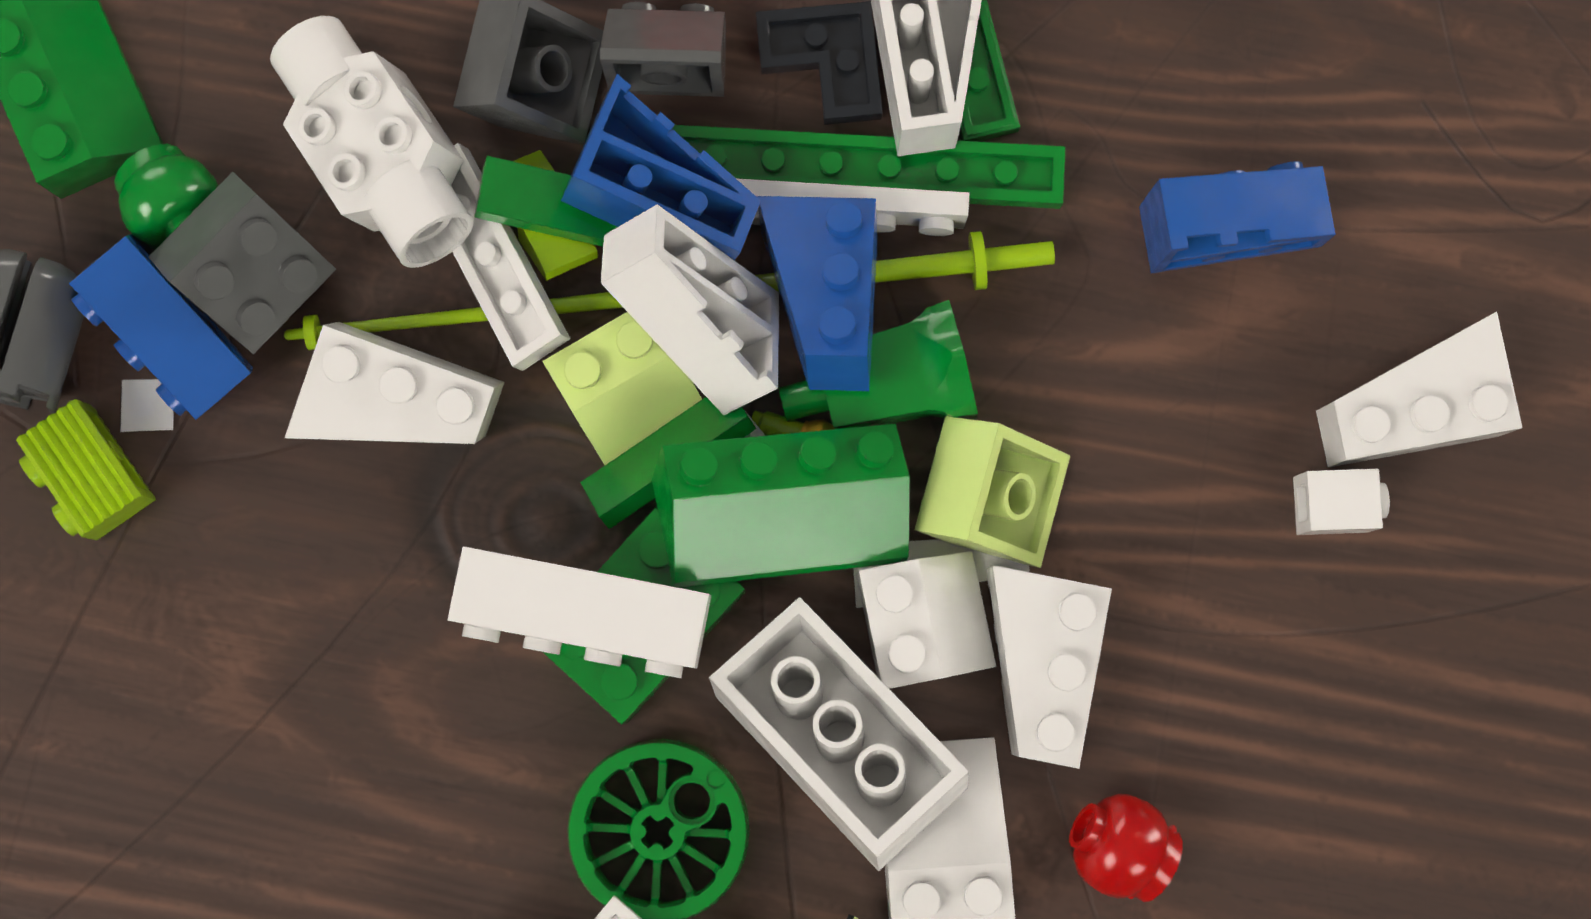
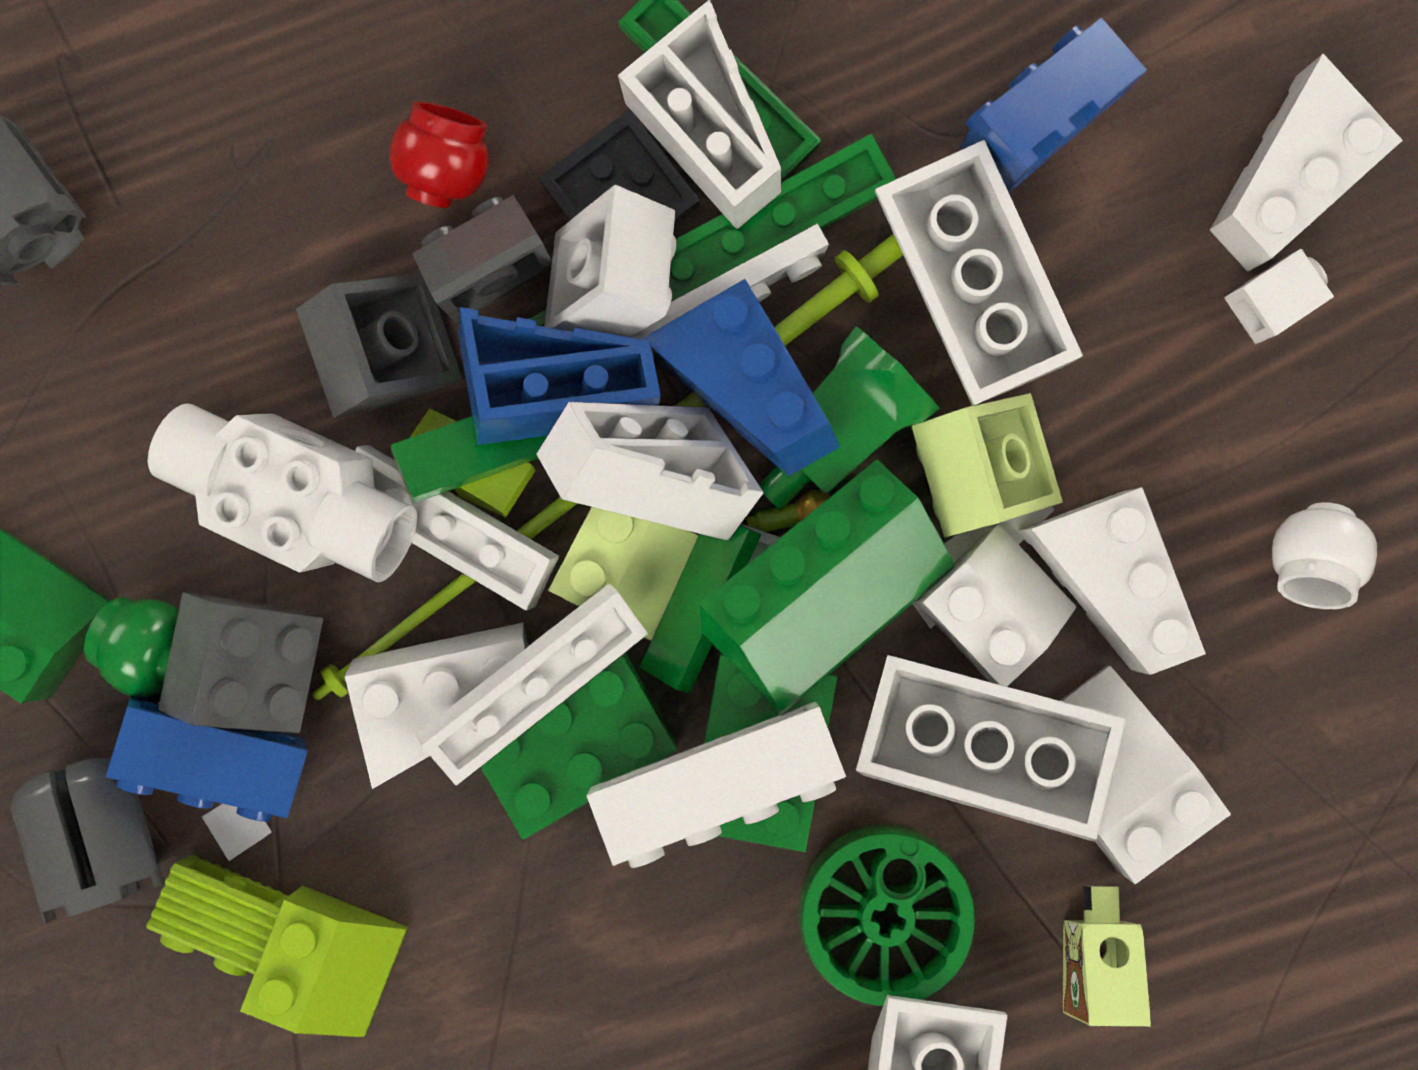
camera: 30 degrees left, 5 degrees up
(143, 570) = (323, 966): none -> lime slope
(477, 428) = (531, 684): none -> white plate
(481, 499) = (584, 741): none -> green brick
(771, 121) = (612, 266): none -> white slope
(1080, 320) = (978, 273): none -> white slope
(1125, 848) = (1279, 693): red piece -> none
(1238, 752) = (1323, 556): none -> white piece

